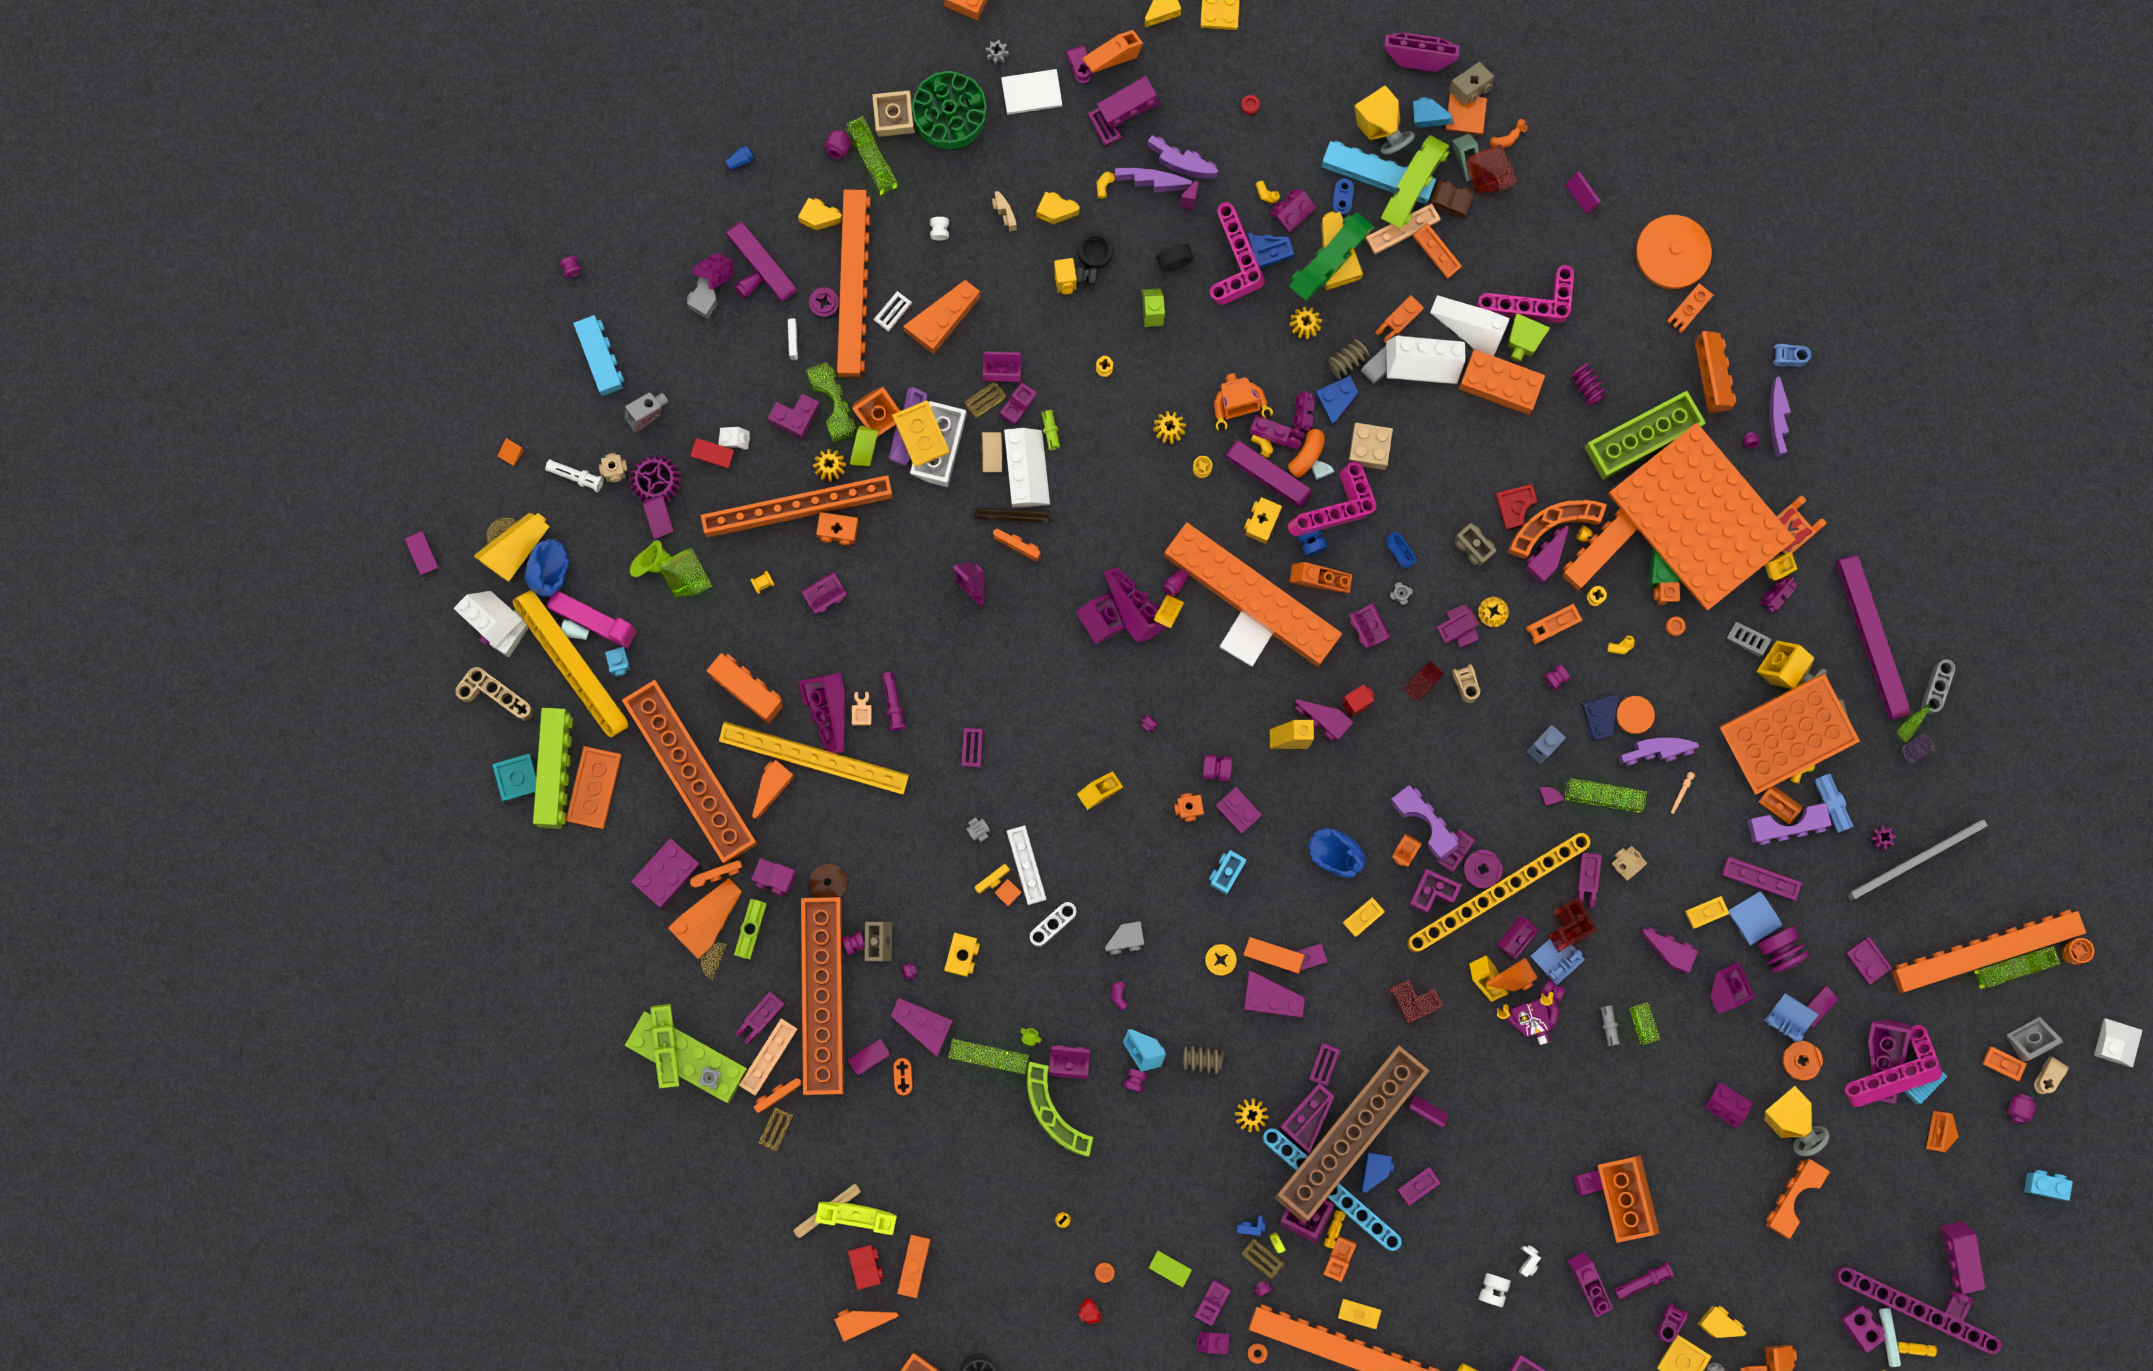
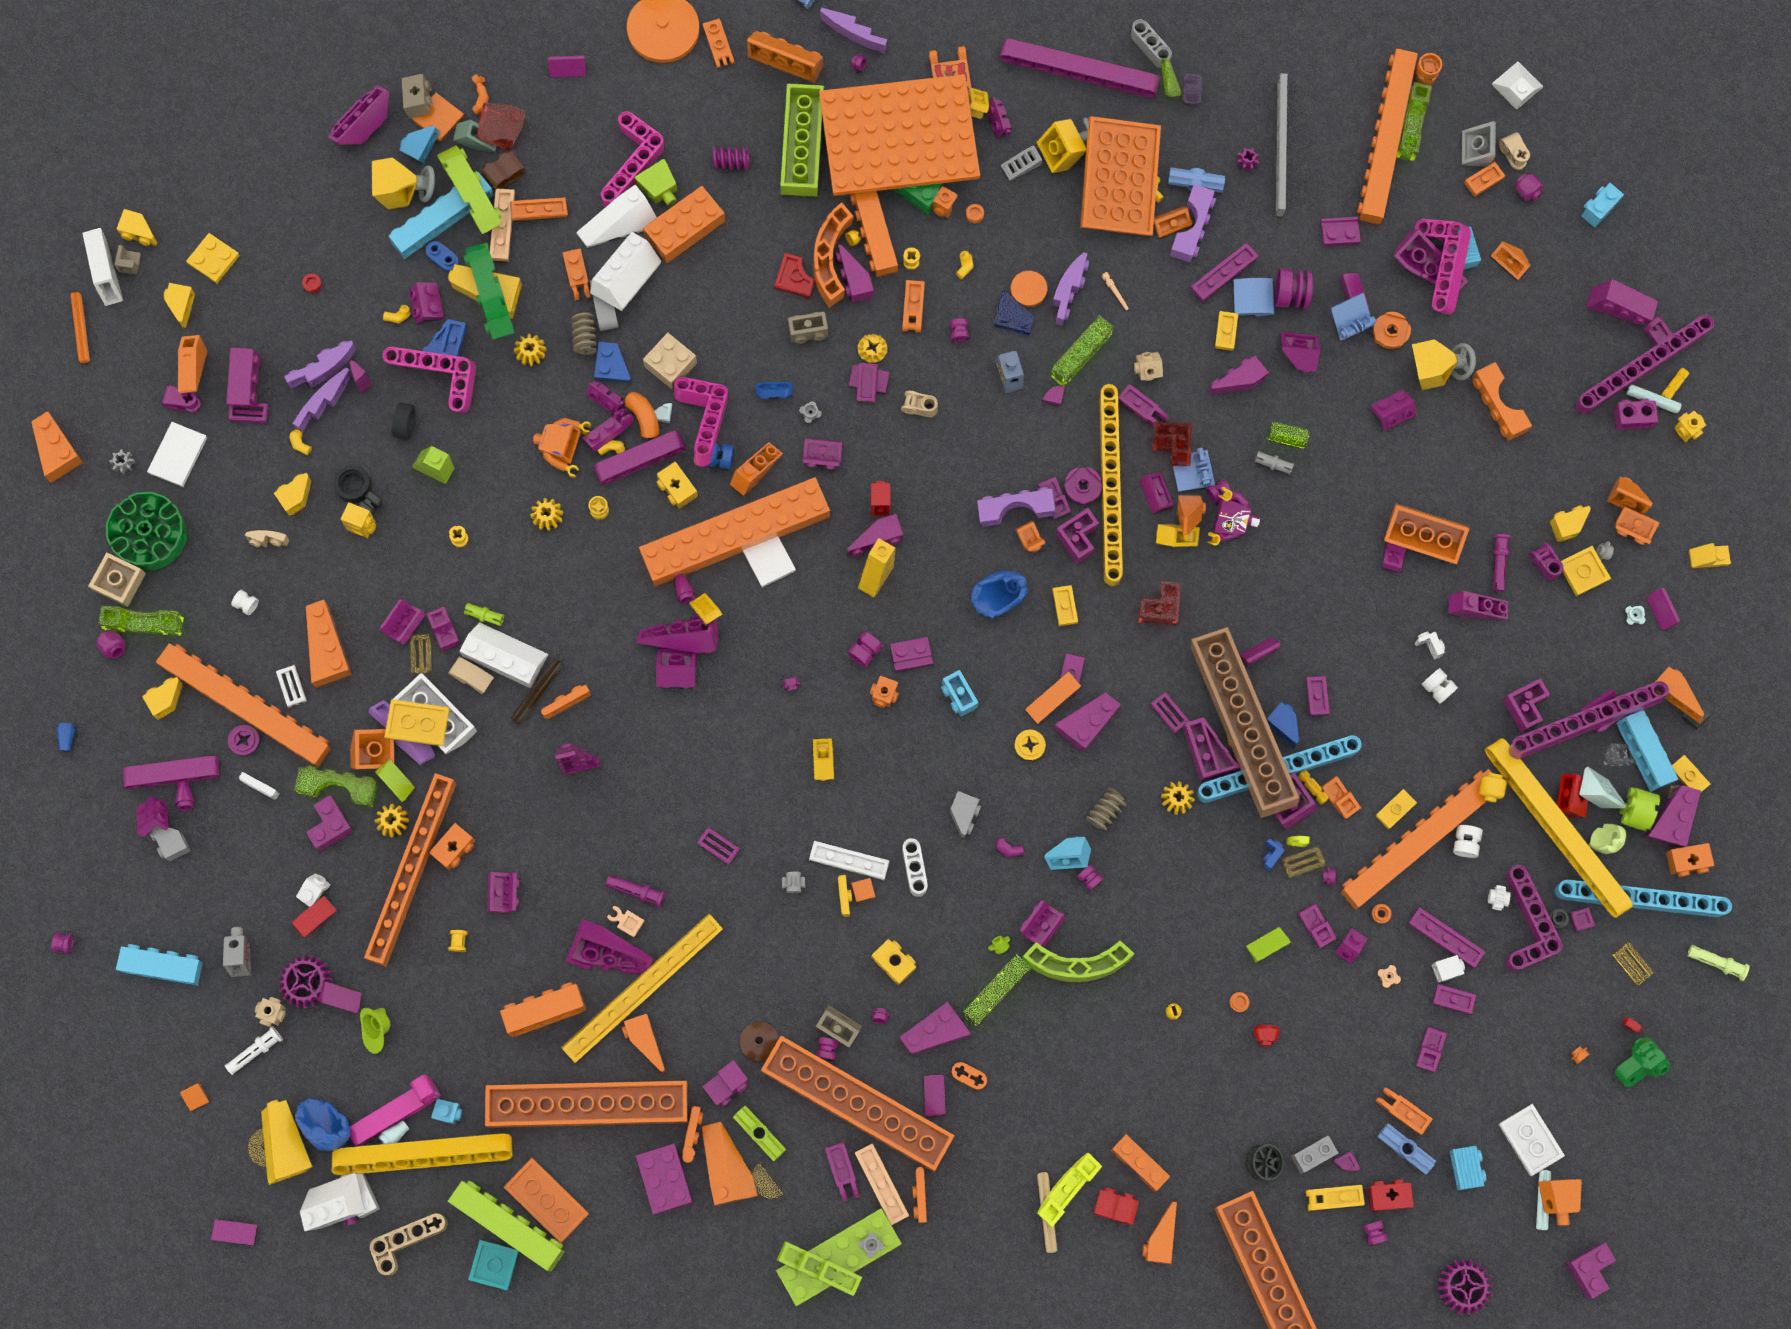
camera: 60 degrees left, 5 degrees down
(685, 574) = (407, 1003): clear neon green slope -> none
(769, 1124) = (953, 1208): clear yellow tile -> none
(1423, 681) = (896, 438): clear red slope -> none

